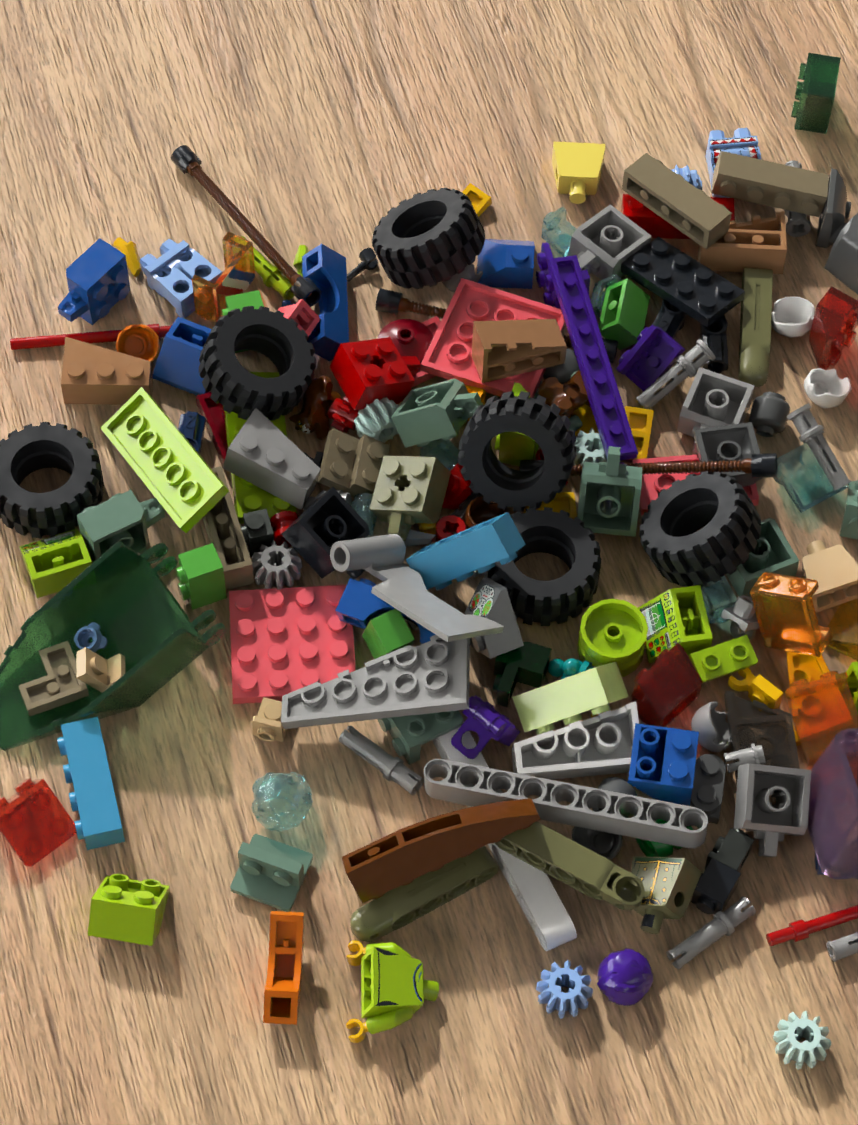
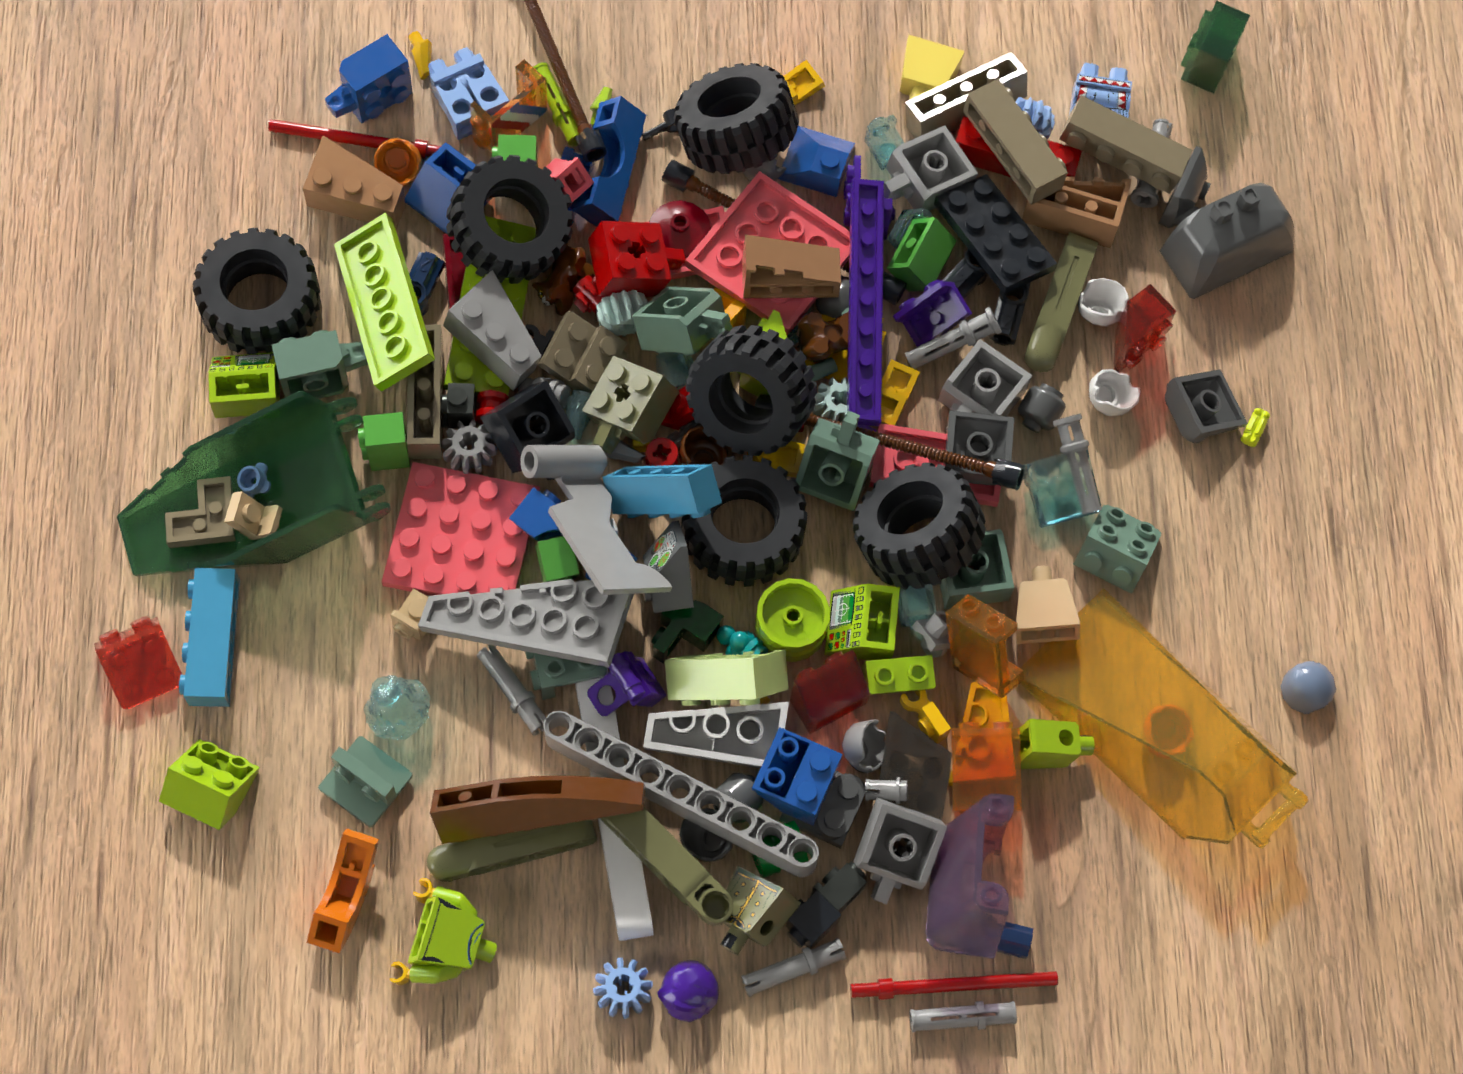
camera: 10 degrees right, 10 degrees up
(606, 185) = (946, 102): none -> dark tan brick

